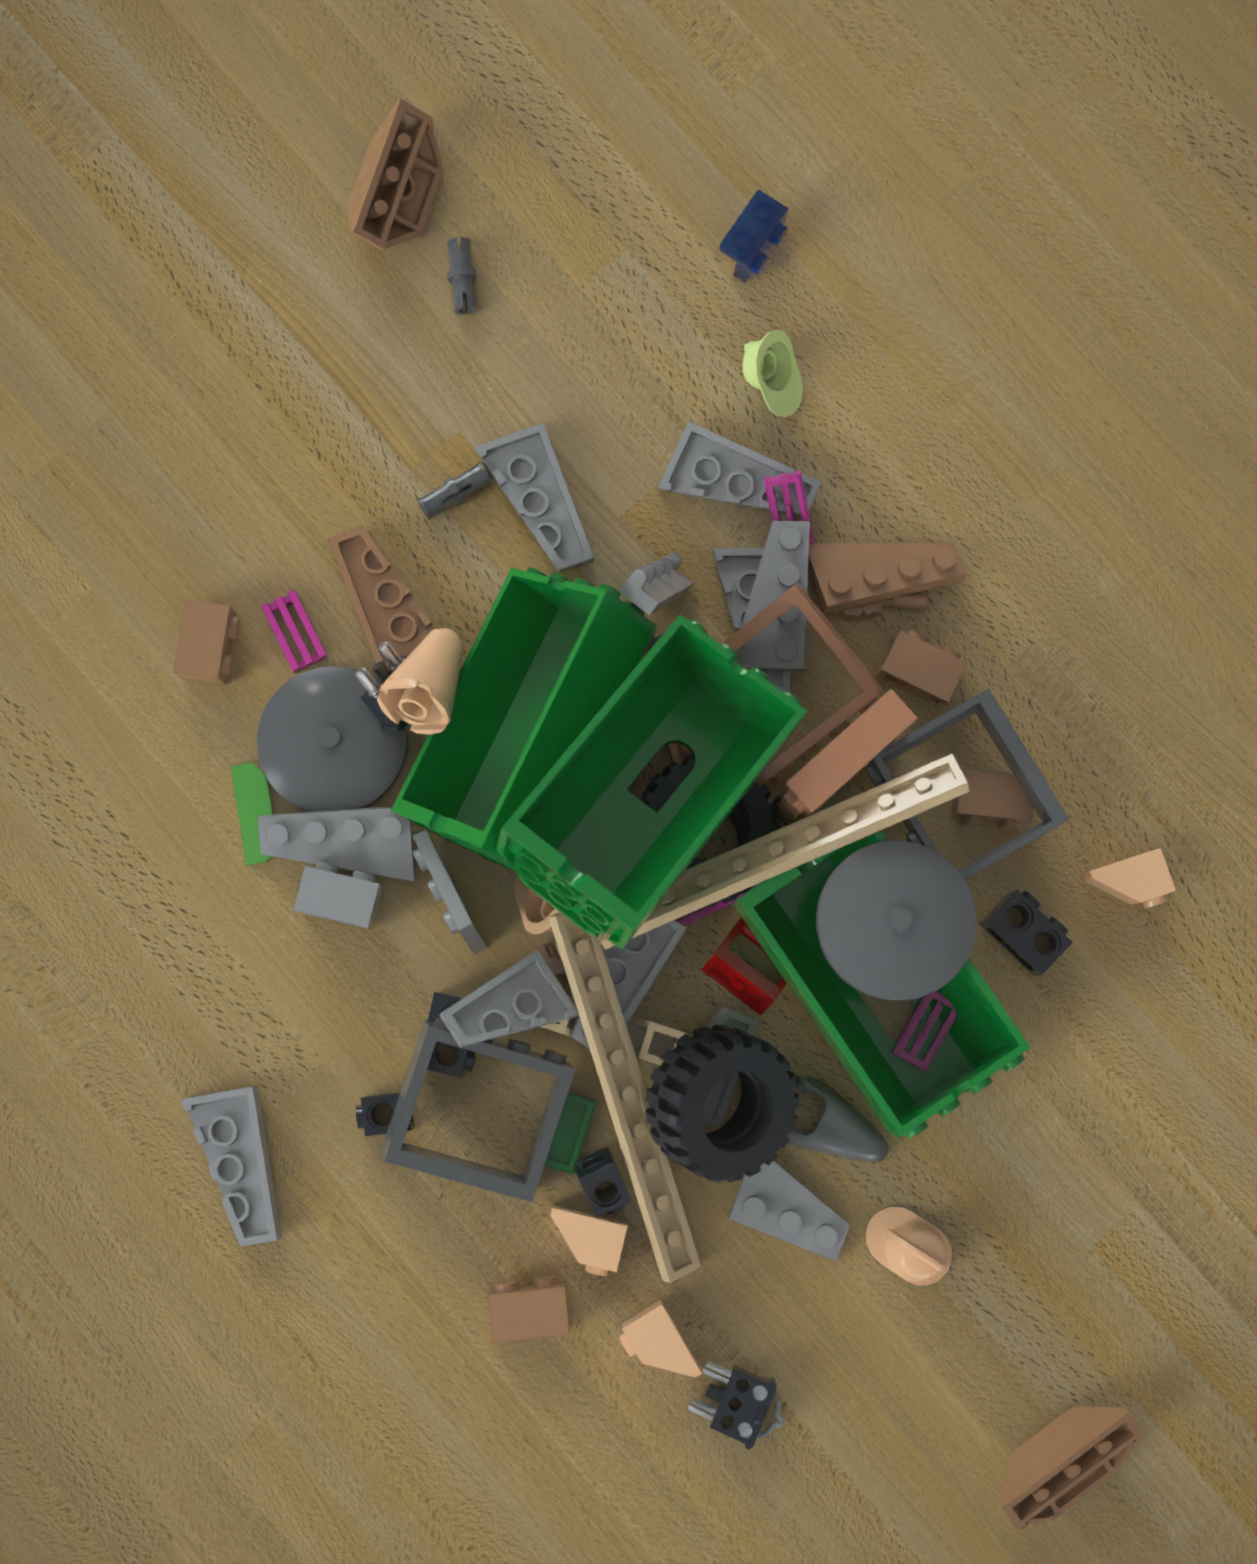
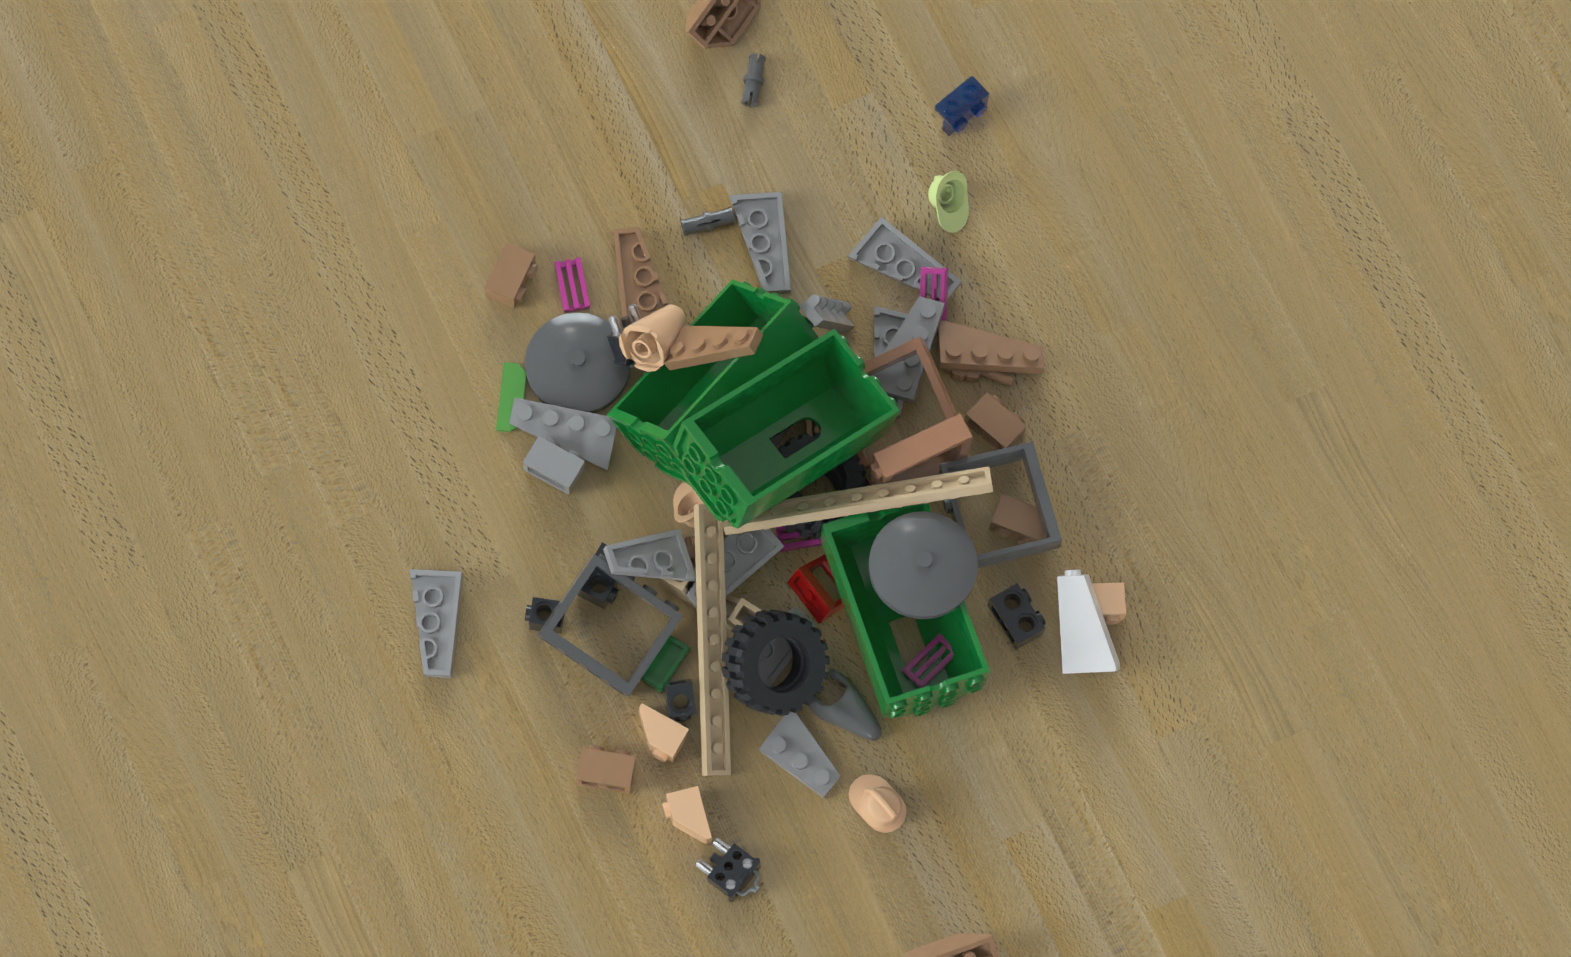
camera: 15 degrees right, 10 degrees down
(443, 888) = (628, 478): light grey wing -> none
(510, 679) = (710, 344): none -> medium nougat wing
(1128, 936) = (1083, 631): none -> white slope

